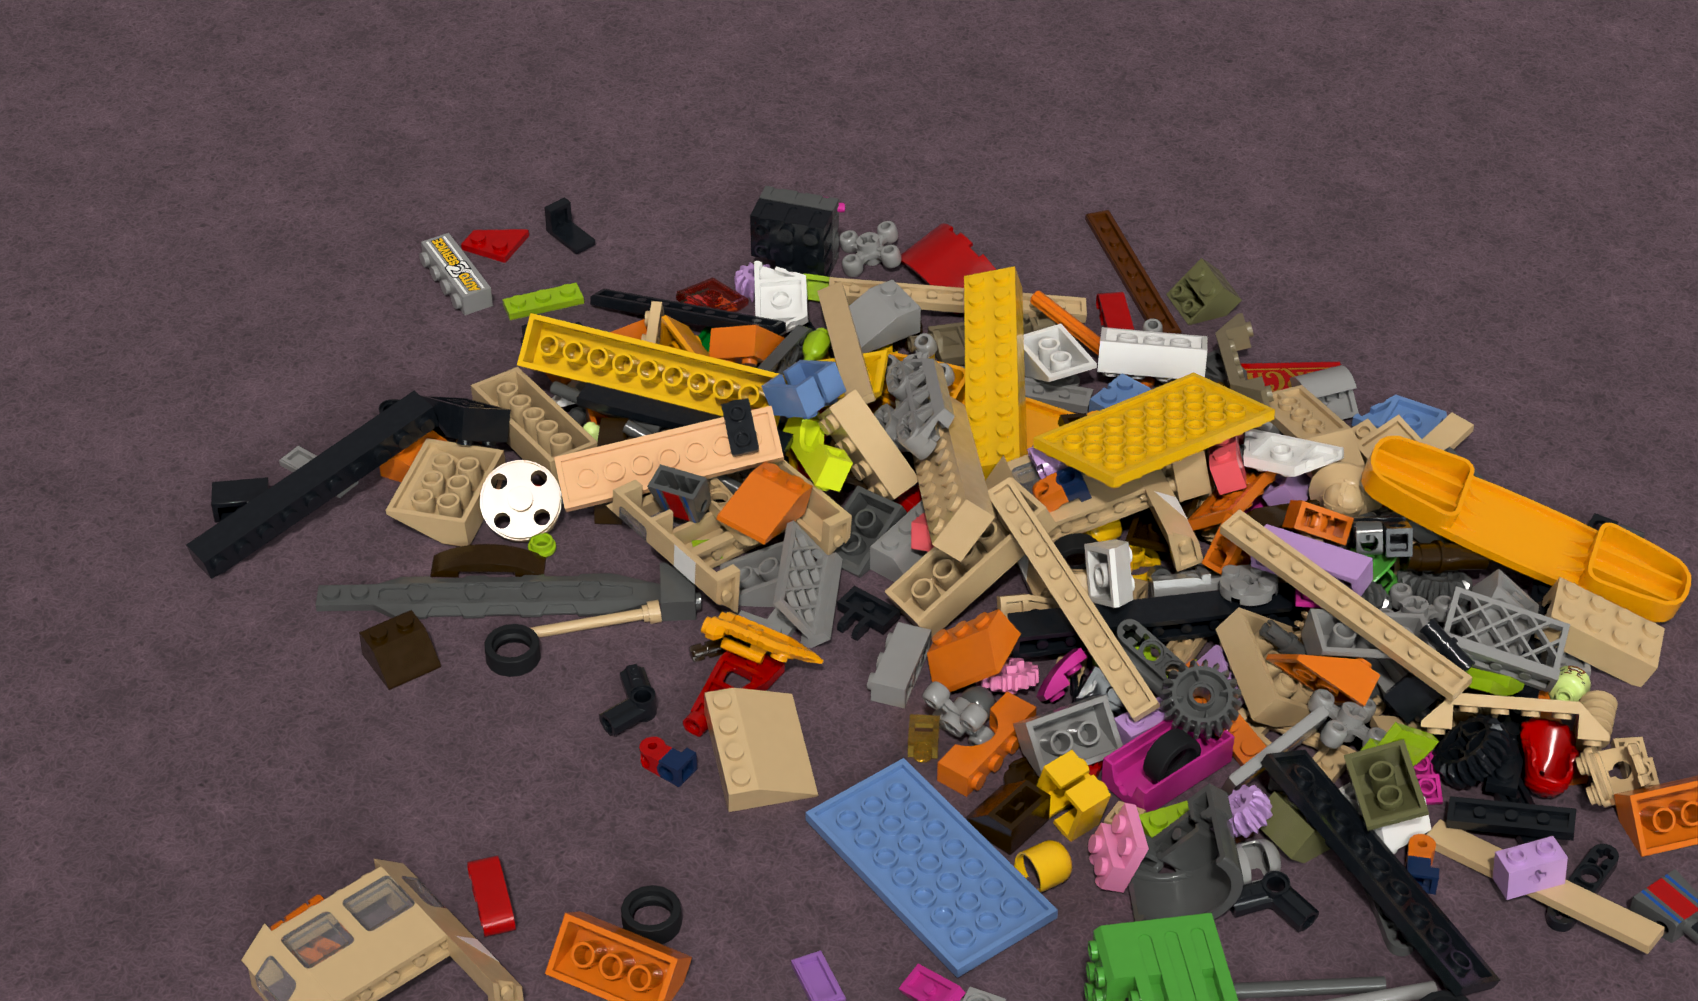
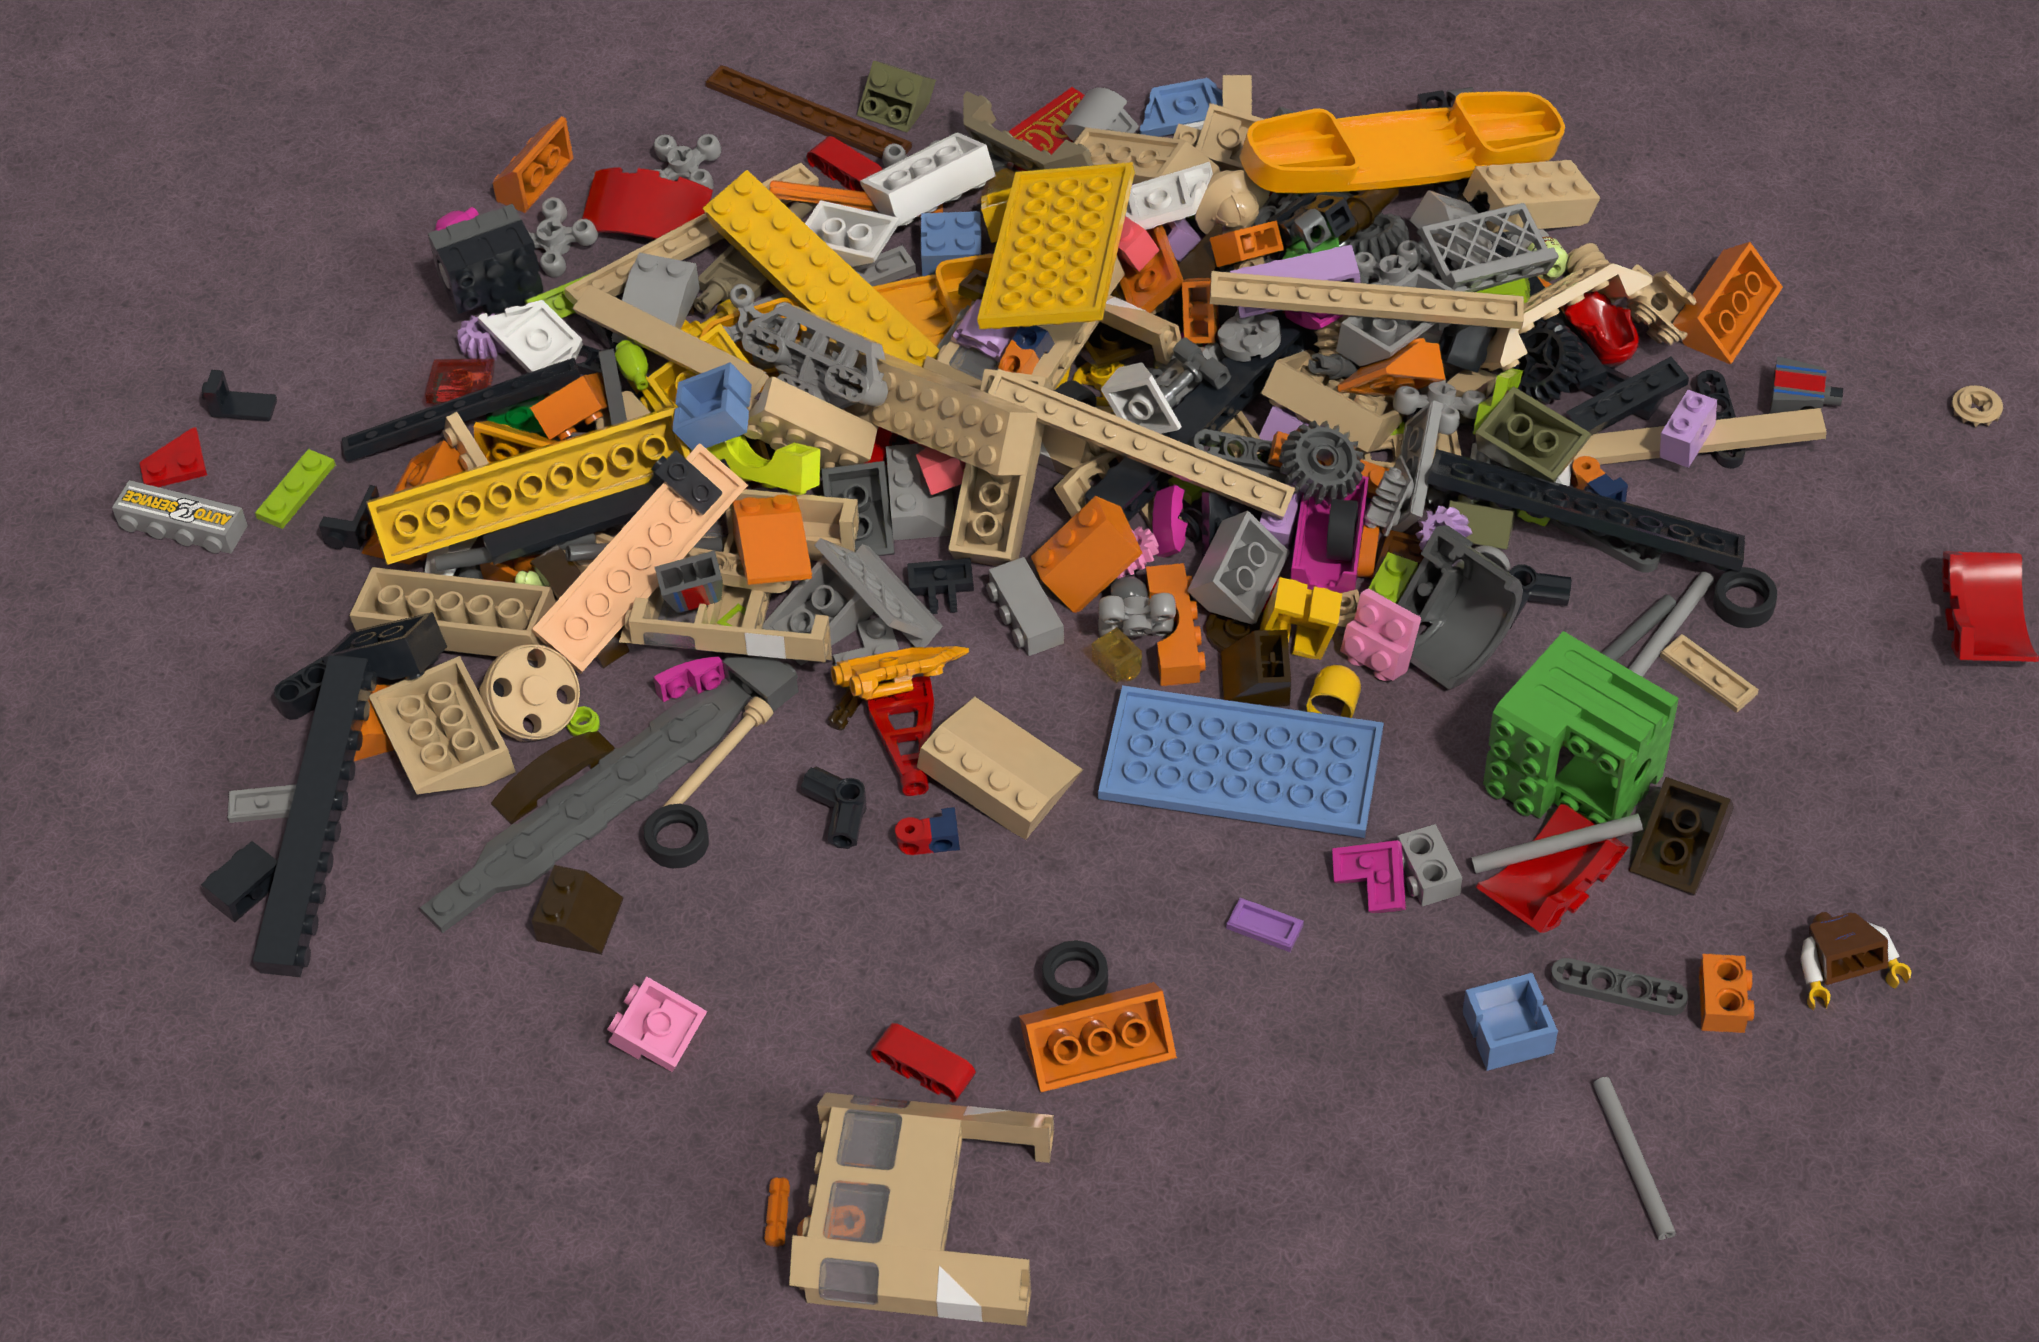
camera: 40 degrees left, 10 degrees up
(362, 750) = (656, 1024): none -> bright pink plate
(642, 563) = (699, 674): none -> dark pink slope
(908, 199) = (535, 166): none -> orange slope
(1006, 251) = (684, 161): none -> light grey gear
(1183, 580) = (1195, 368): none -> dark grey bar
(1186, 788) = (1368, 551): none -> orange beam
(1230, 757) = (1392, 491): none -> light grey hinge
(1446, 645) = (1464, 282): black pin -> none

